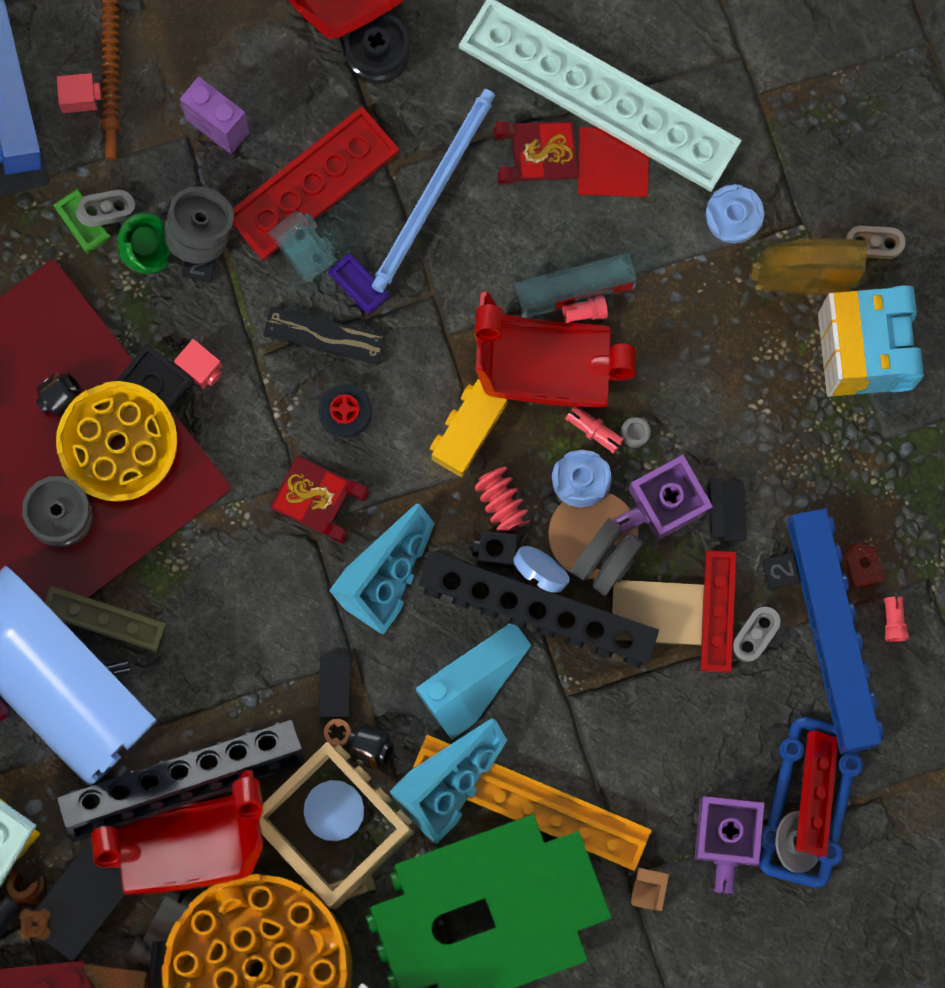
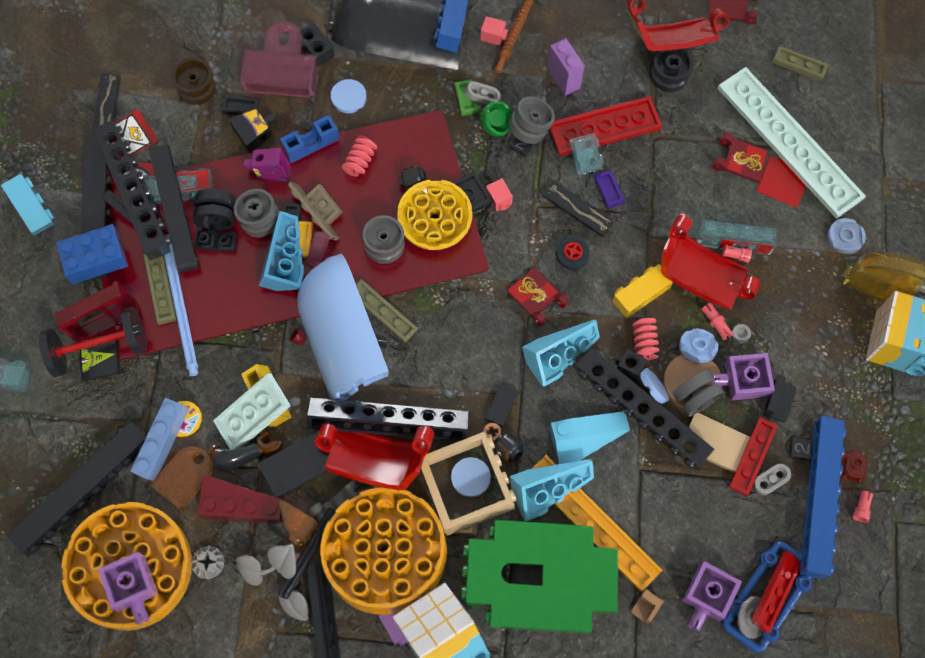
camera: 25 degrees right, 10 degrees down
(26, 924) = (261, 459): clear orange plate -> none
(433, 191) = (672, 155): light blue piece -> none

